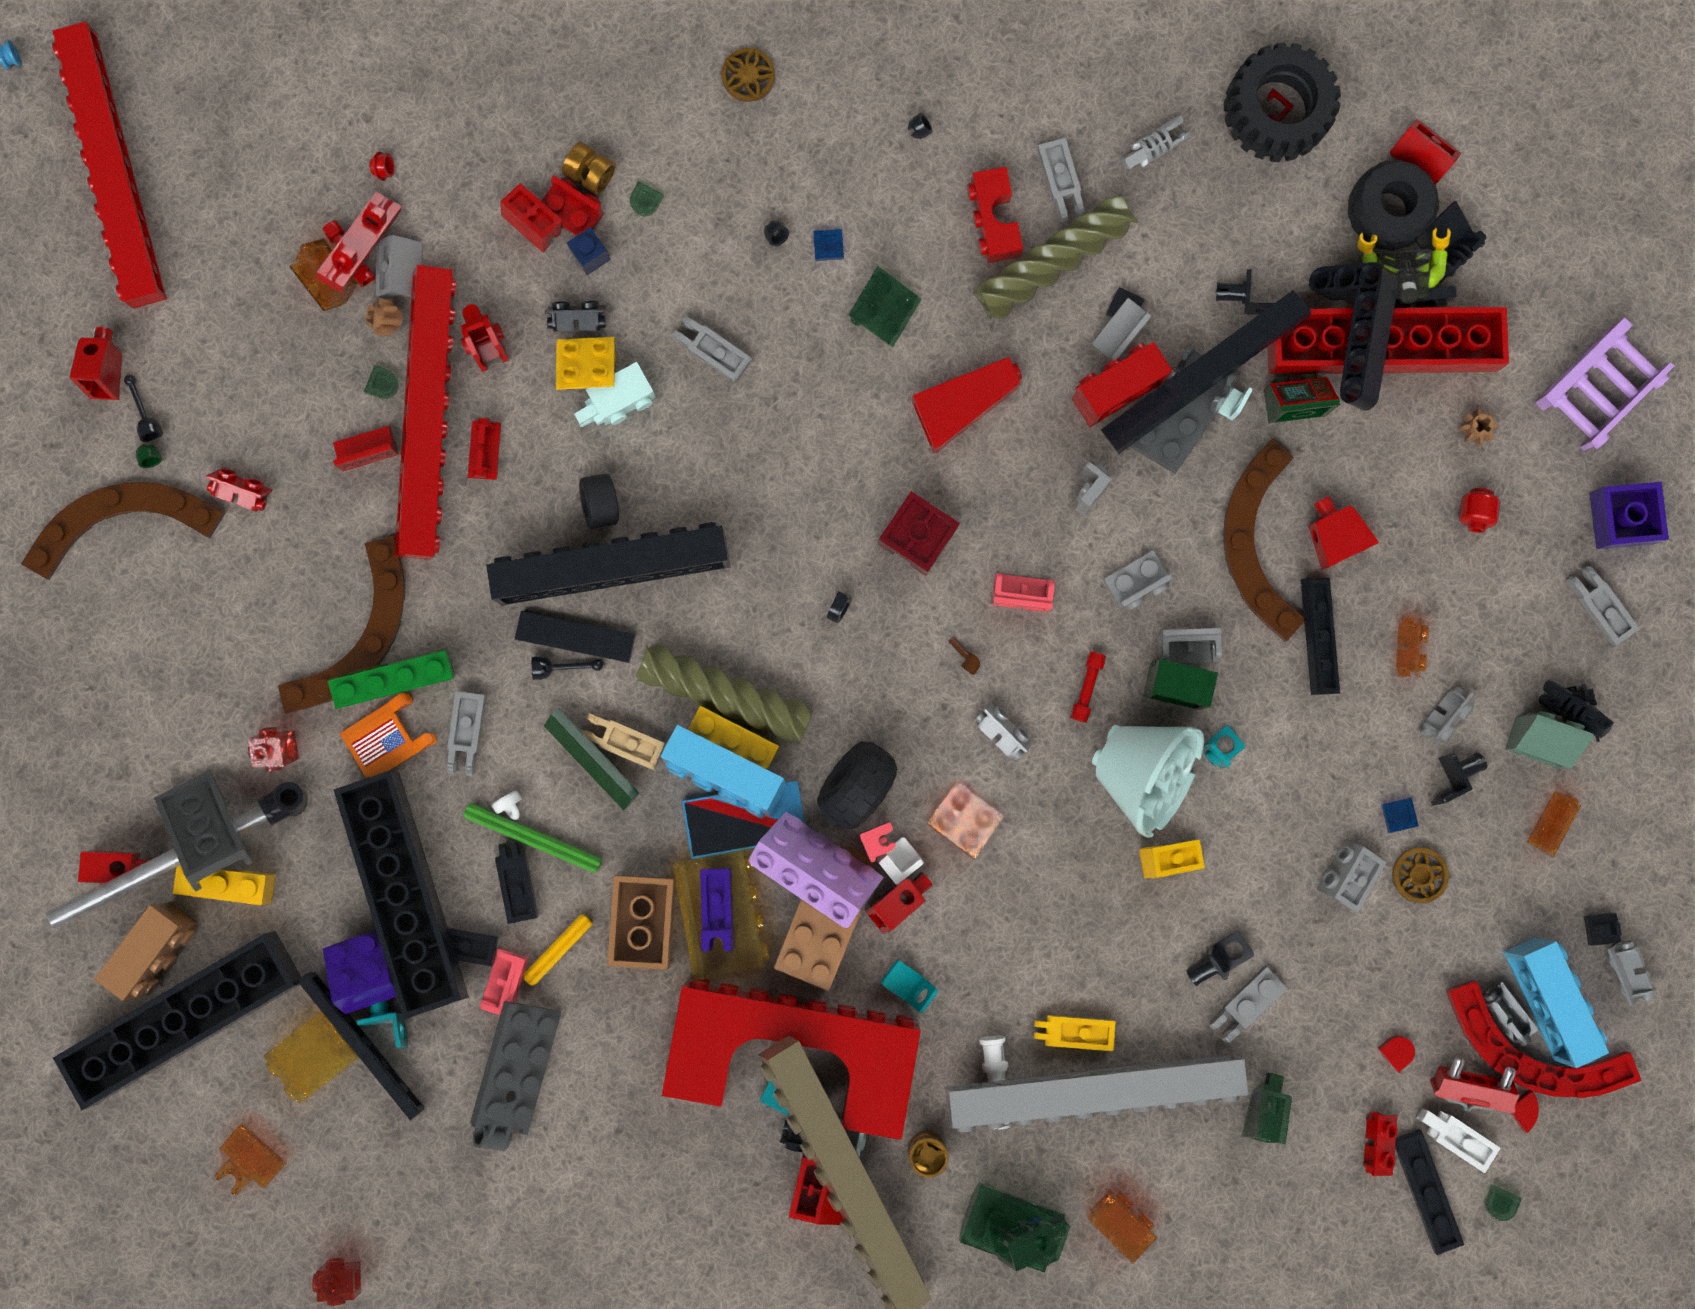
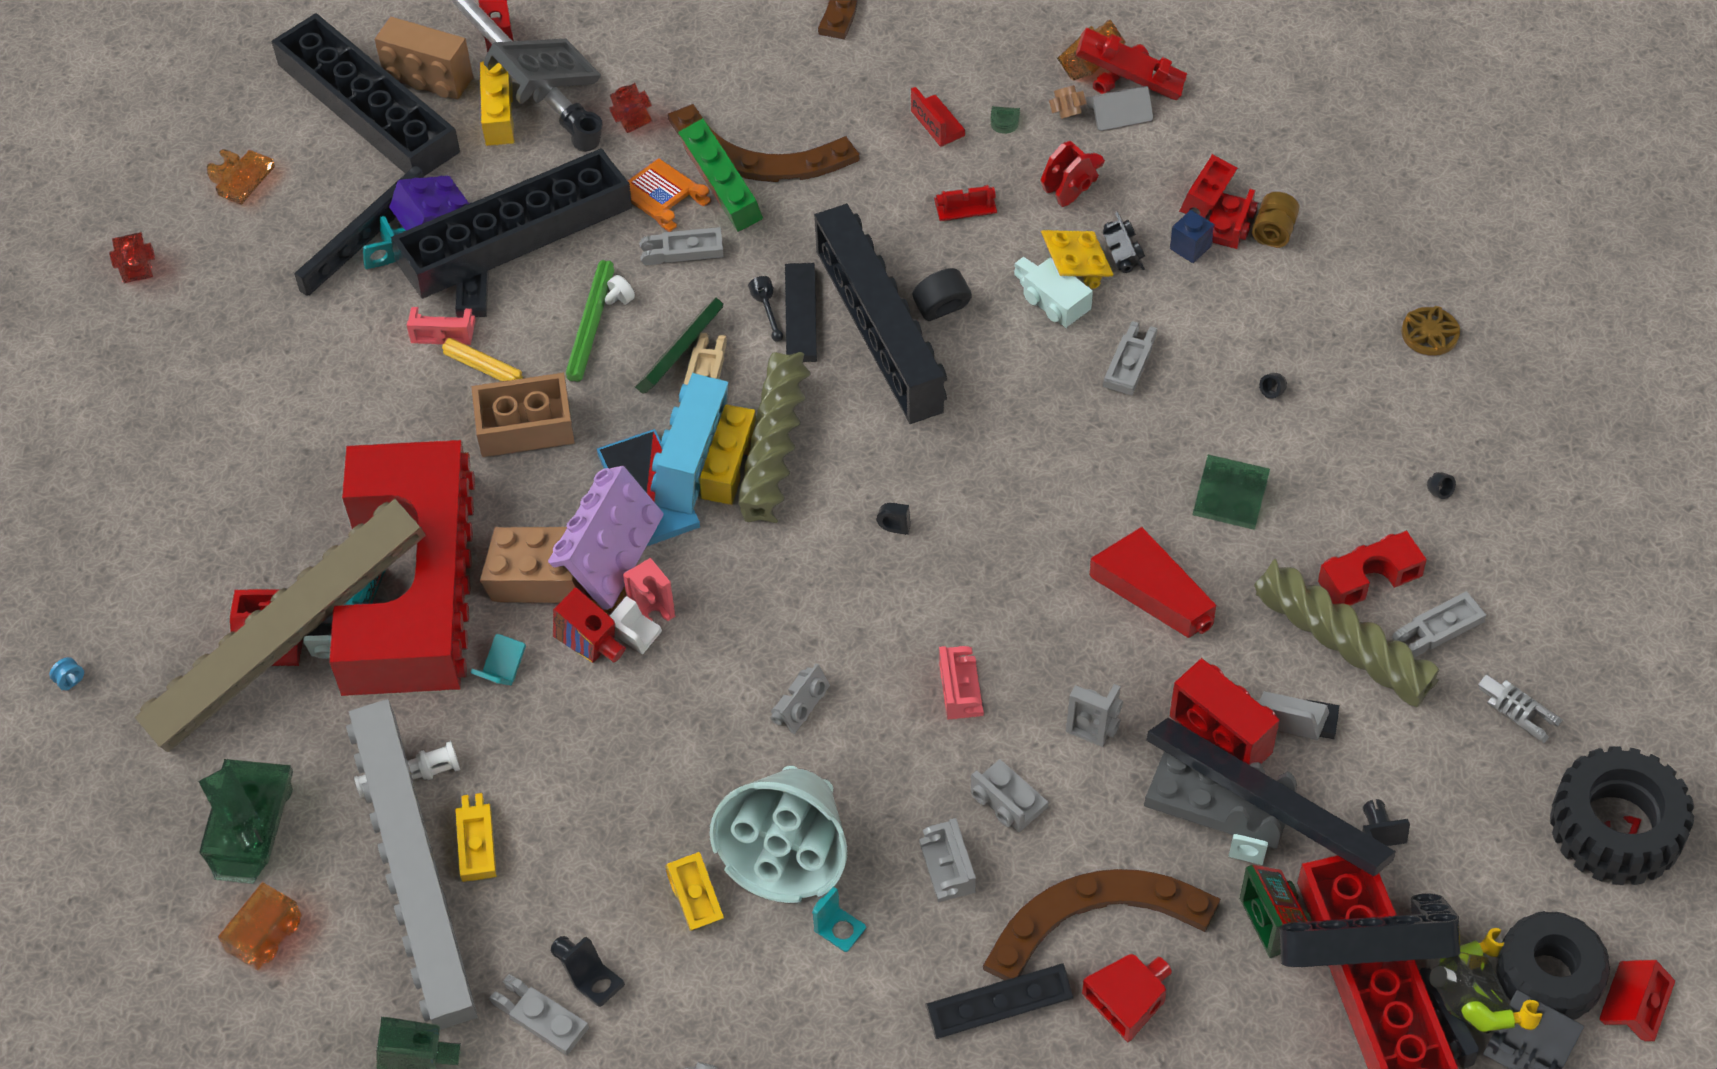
camera: 85 degrees right, 30 degrees down
(226, 484) = (869, 40): red hinge -> none
(310, 1058) = (341, 191): clear yellow panel -> none
(382, 166) = (1216, 79): red plate -> none
(423, 413) = (982, 147): red brick -> none
(516, 884) = (541, 314): black hinge -> none
(516, 1065) = (362, 345): dark grey hinge -> none
(645, 200) = (1264, 275): clear green tile -> none
(717, 908) = (545, 475): dark purple plate -> none
(748, 950) = (539, 479): clear yellow panel -> none
(828, 245) = (1279, 434): clear blue tile -> none
(857, 785) = (704, 555): black tyre -> none
(918, 533) = (993, 566): dark red piece -> none
(927, 1154) = (317, 714): pearl gold wheel -> none
(965, 820) = (691, 680): clear orange hinge -> none
(971, 661) = (869, 653): reddish brown hand -> none
(1094, 662) = (901, 772): red bar -> none
(1180, 684) = (896, 847): dark green piece -> none

